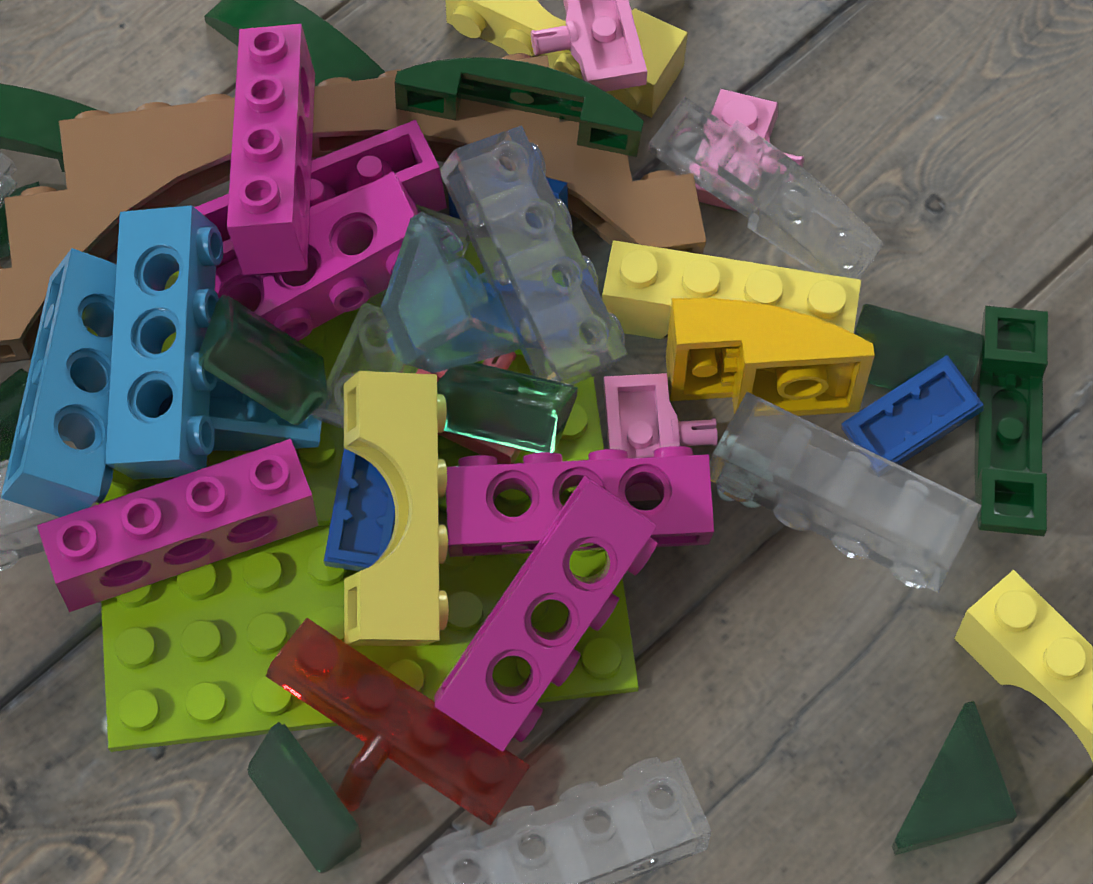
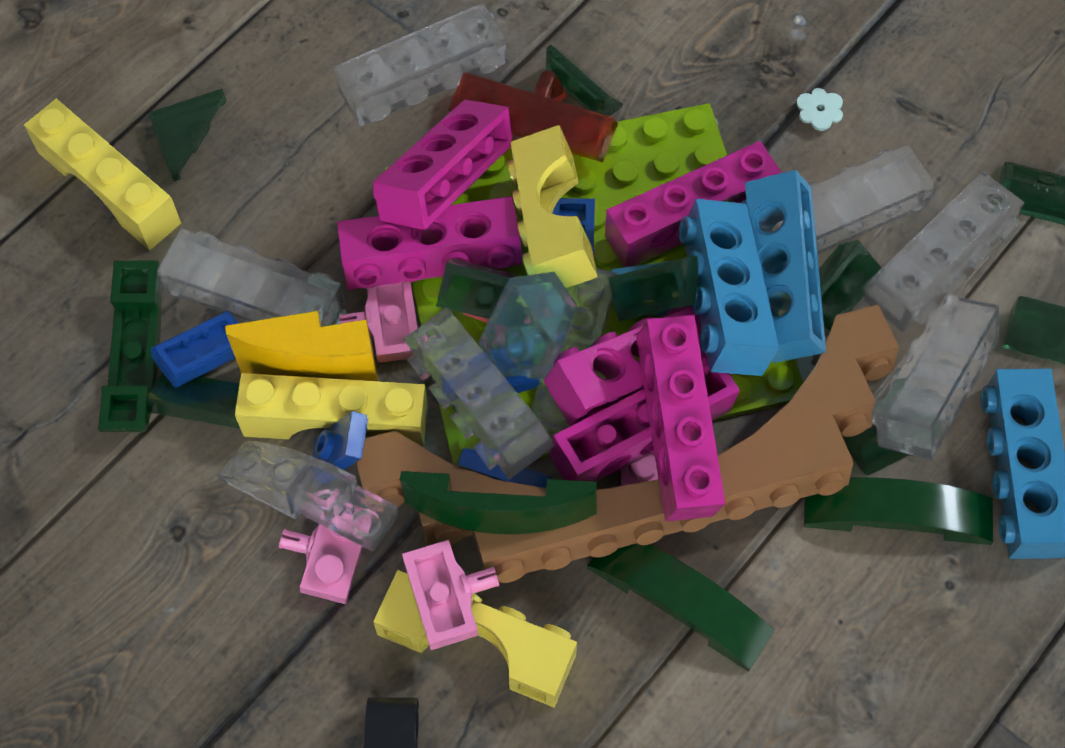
camera: 175 degrees right, 0 degrees up
(718, 225) = (343, 441): none -> blue plate

